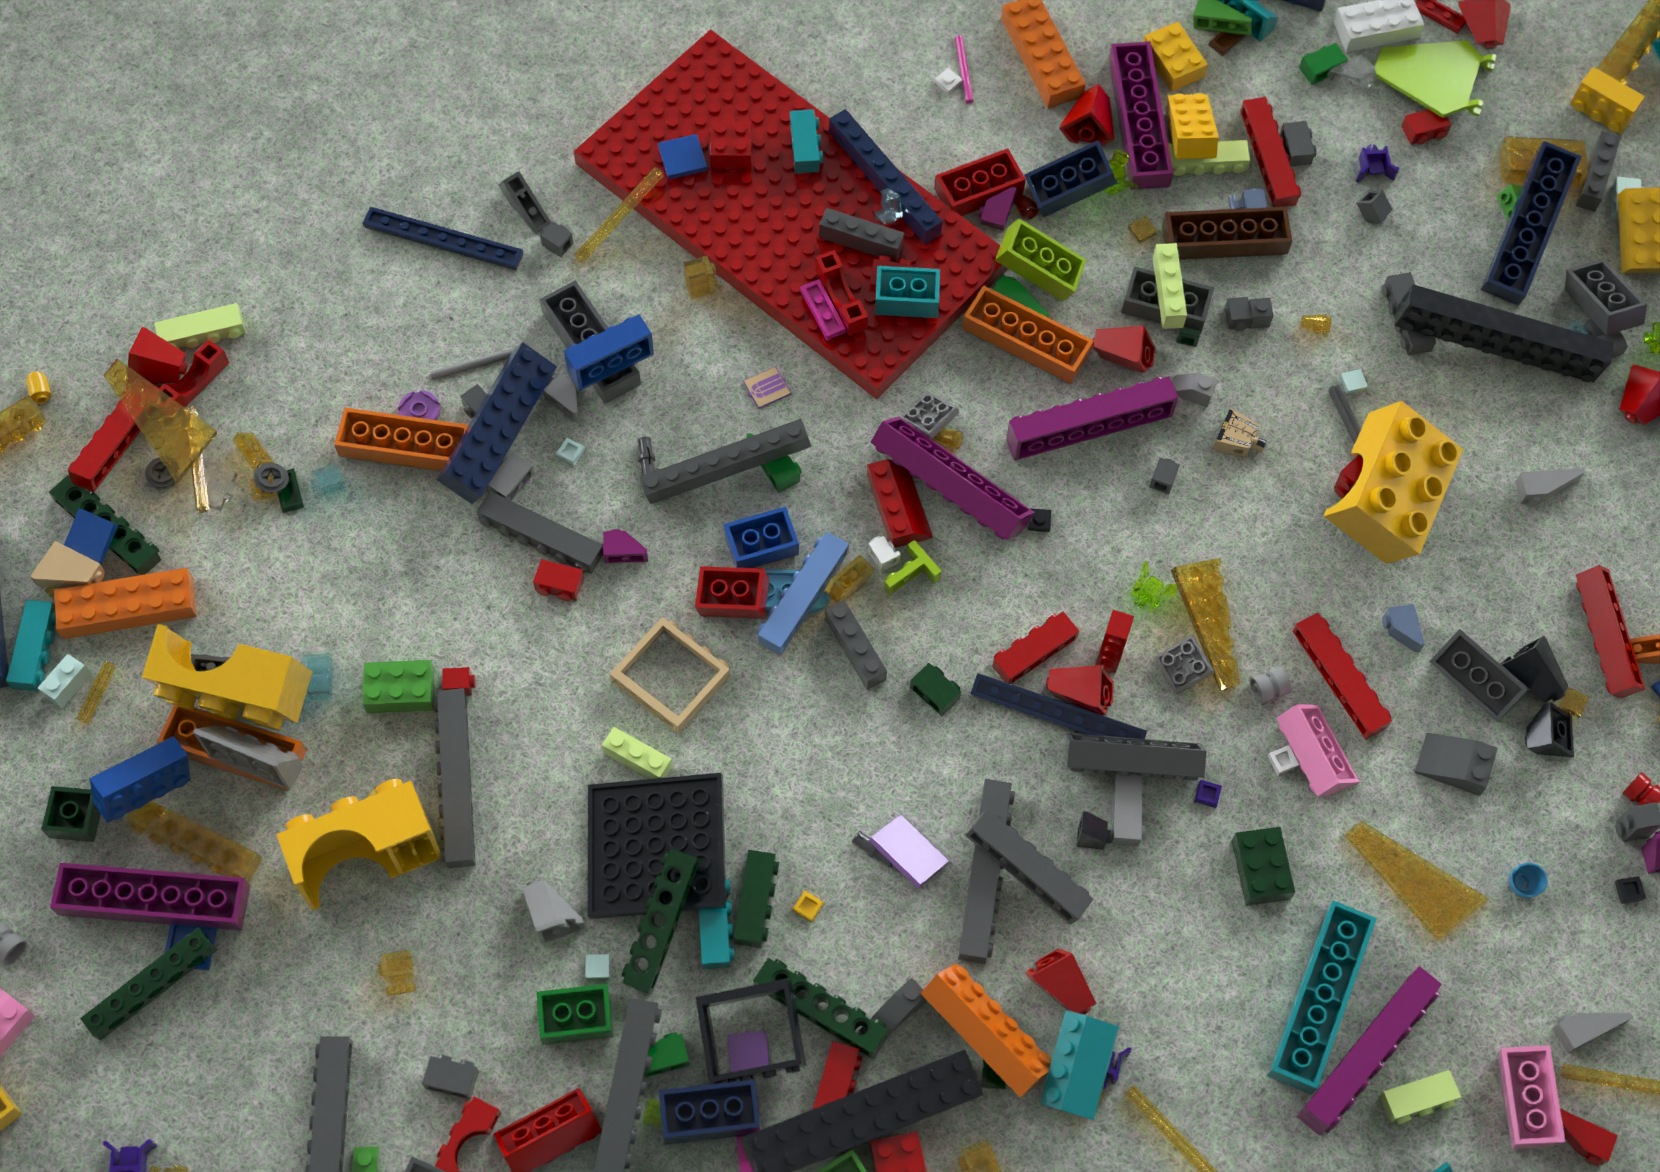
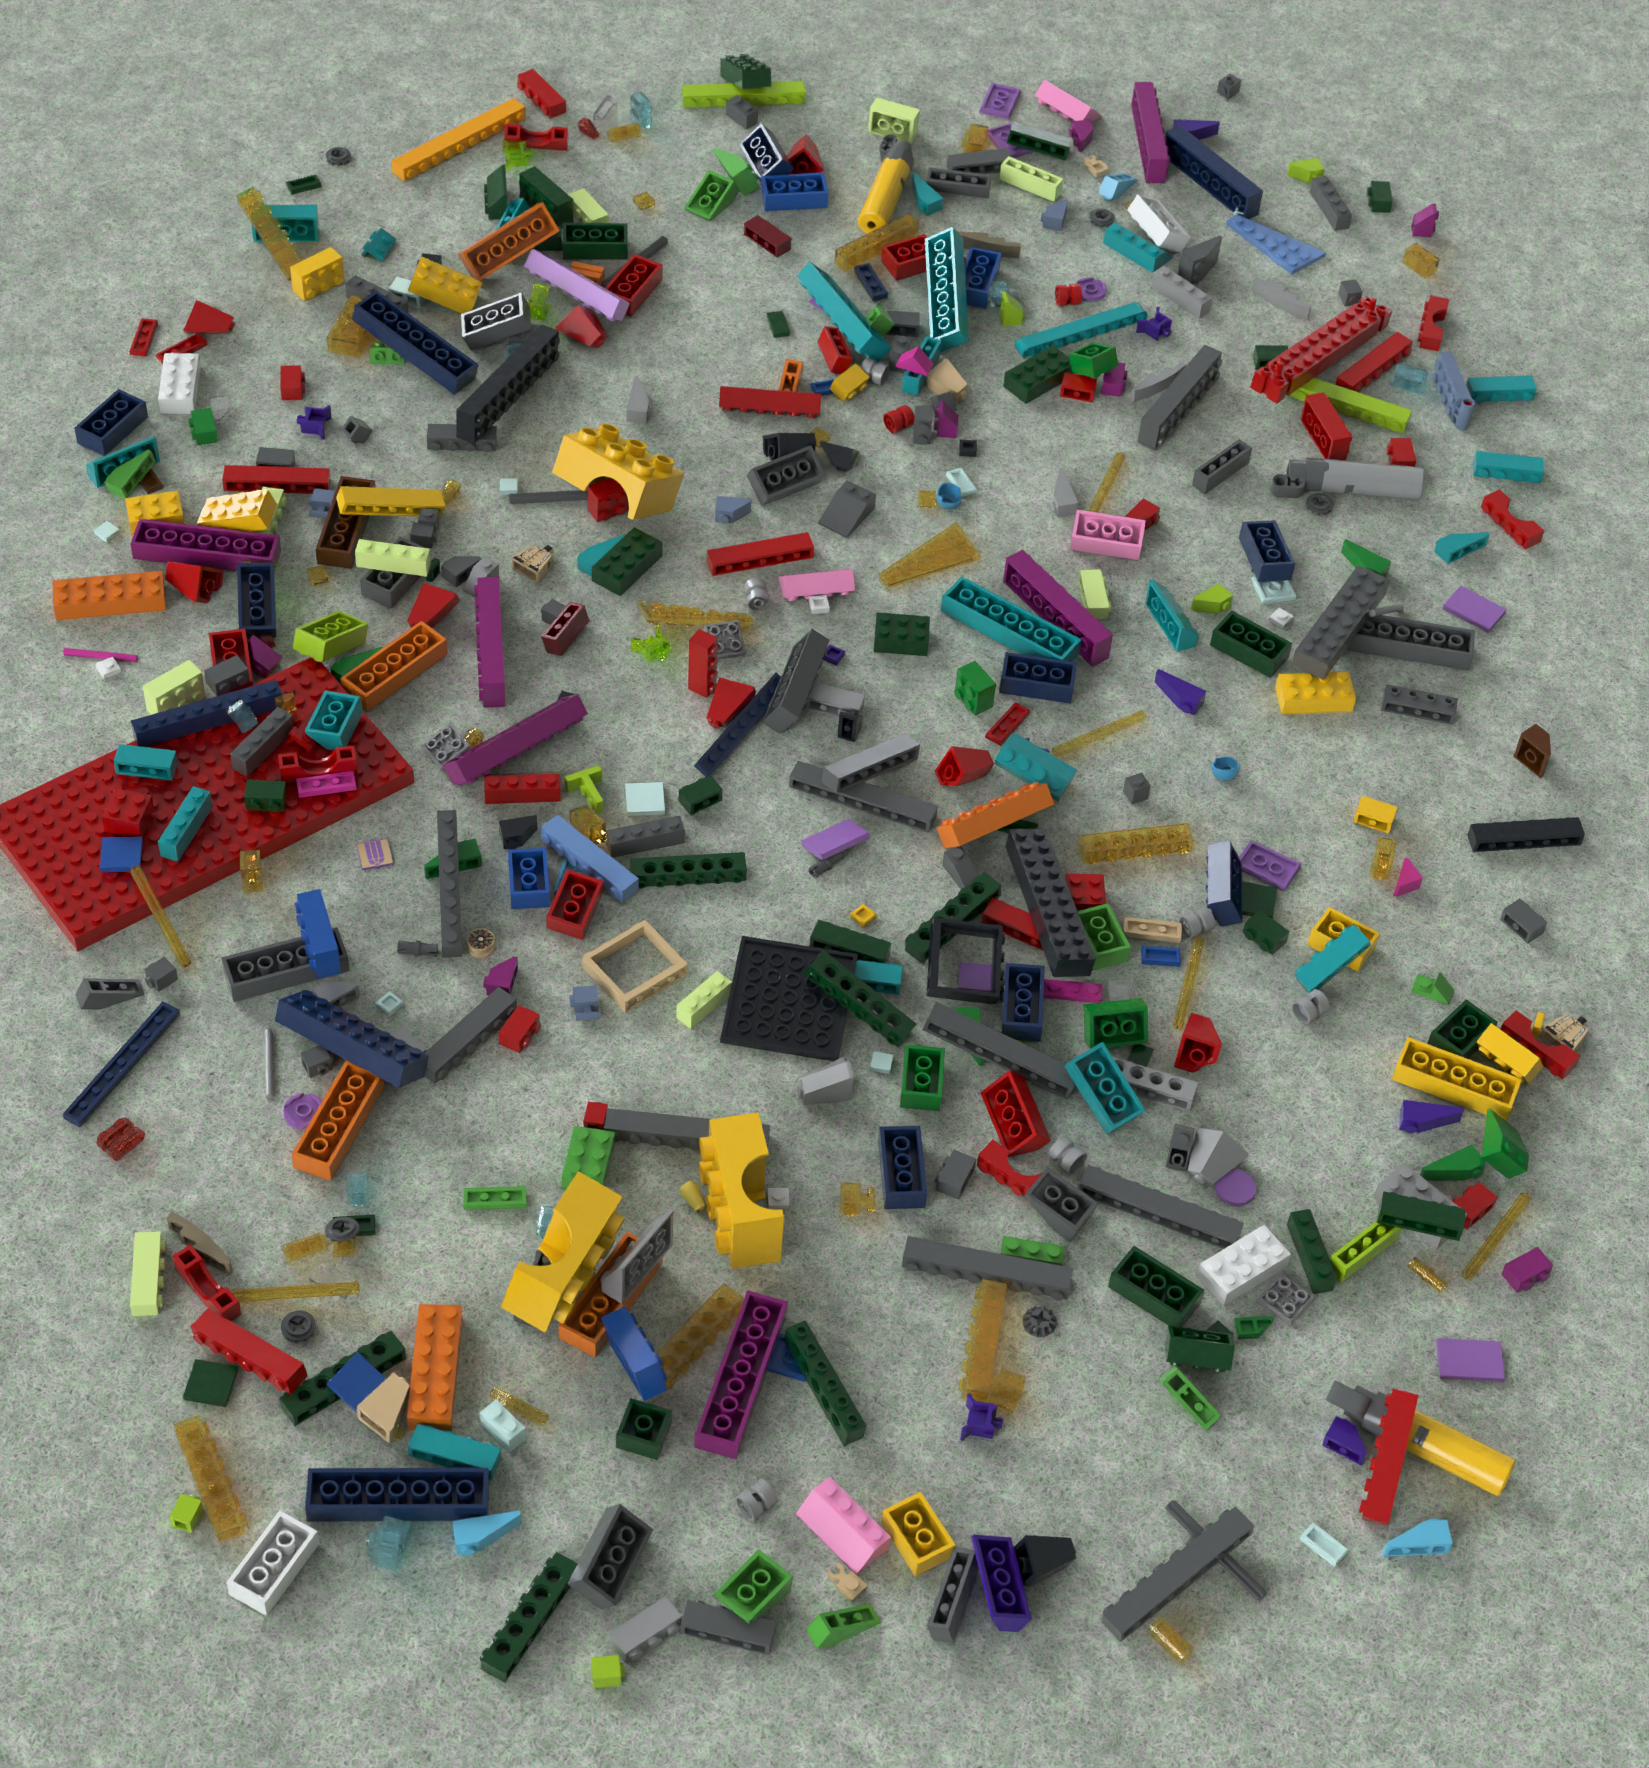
camera: 80 degrees left, 15 degrees down
(38, 387) = (161, 1422): yellow brick -> none
(88, 414) = (210, 1383): none -> dark green tile
(156, 358) = (174, 1310): red slope -> none
(167, 425) = (260, 1298): clear yellow wing -> none
(231, 1147) = (983, 1341): none -> clear yellow brick
(238, 367) = (201, 1242): none -> dark tan slope
(340, 609) = (494, 1198): none -> bright green plate
(352, 262) = (120, 1138): none -> clear red brick
(390, 891) = (778, 1198): none -> white plate
(444, 1014) = (902, 1167): none -> dark blue brick
(610, 636) = (585, 1002): none -> sand blue brick
(666, 516) = (481, 944): none -> tan wheel
(730, 198) = (185, 824): none -> teal brick
(789, 258) = (265, 795): none -> dark green brick
(807, 648) = (689, 869): none -> dark green brick
(828, 513) = (517, 831): none -> black slope
(883, 553) = (565, 802): white brick -> none
(917, 633) = (645, 799): none -> light aqua tile
(922, 143) = (174, 688): none -> yellowish green brick
(922, 242) = (286, 702): none -> clear yellow plate
(944, 179) = (227, 675): none -> dark grey brick
(1035, 648) = (682, 725): red brick -> none
(1138, 24) = (107, 531): none -> light aqua tile
(1140, 490) = (565, 628): none -> dark red brick
(1161, 1023) = (1007, 724): none -> red tile
(1194, 969) = (975, 688): none -> green brick
(1198, 359) = (458, 568): none -> dark grey slope
(1242, 1046) = (1038, 677): none -> dark blue brick
(1263, 263) = (388, 501): none -> yellow brick
(1272, 500) = (594, 554): none -> teal slope
(1273, 531) = (627, 561): none -> dark green brick
(1435, 74) = (244, 363): lime flag -> none
(1515, 854) = (926, 499): none -> clear yellow plate
(1566, 893) = (960, 479): none -> light aqua tile

